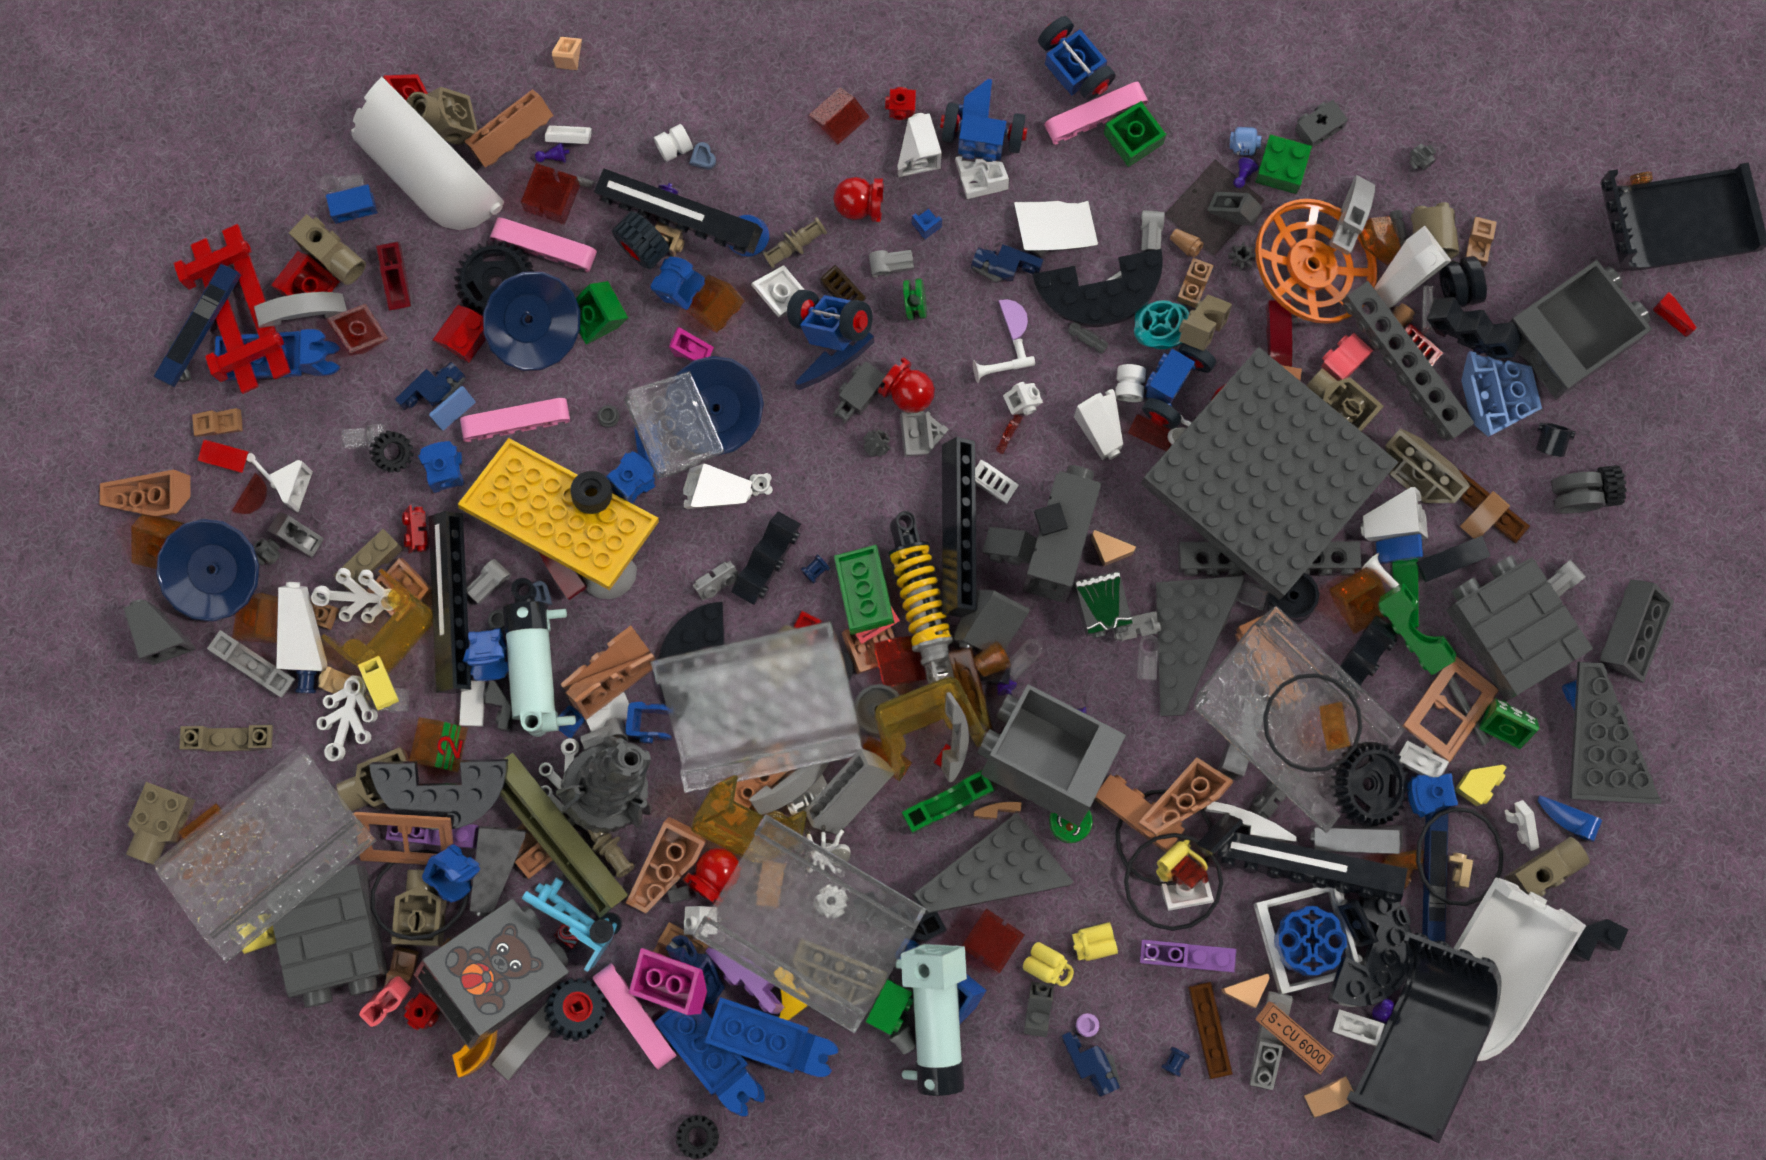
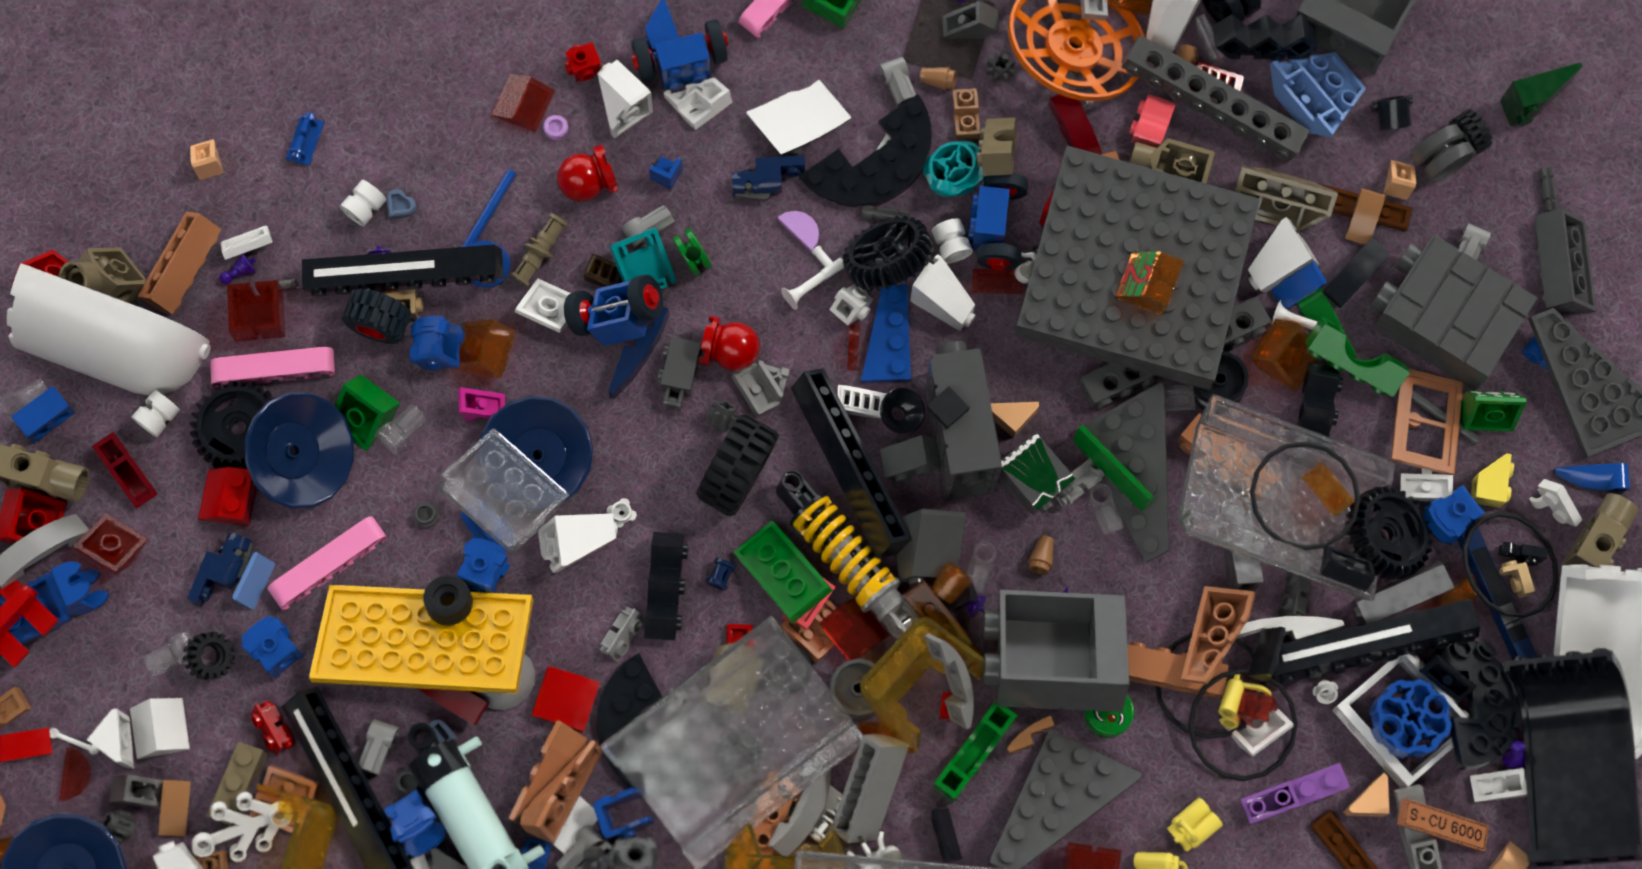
camera: 30 degrees left, 5 degrees down
(313, 557) = (174, 808): none -> medium nougat slope
(331, 490) = (159, 727): none -> white slope
(436, 241) = (155, 413): none -> white wheel
(617, 340) = (398, 433): none -> clear piece
(648, 611) = (565, 698): none -> red slope
(652, 70) = (305, 139): none -> blue hinge
(771, 192) = (490, 208): none -> blue bar
(855, 147) = (556, 127): none -> lavender tile
(866, 488) = (737, 465): none -> black tyre
(874, 291) = (645, 261): none -> teal container
(894, 857) = (945, 835): none -> black slope
(1031, 499) = (911, 405): none -> black piece
(1038, 446) = (889, 342): none -> blue wing
(1055, 379) = (874, 267): none -> black gear
(1078, 672) = (1042, 556): none -> medium nougat cone
(1170, 628) = (1113, 468): none -> green slope
(1255, 887) = (1326, 691): none -> white plate
(1269, 489) = (1150, 280): none -> clear orange slope
(1317, 797) = (1347, 568): none -> black slope
(1480, 855) = (1530, 554): none -> black plate
(1531, 498) = (1400, 180): none -> light nougat slope
(1655, 562) = (1548, 189): none -> dark grey axle
(1680, 477) = (1532, 94): none -> dark green slope

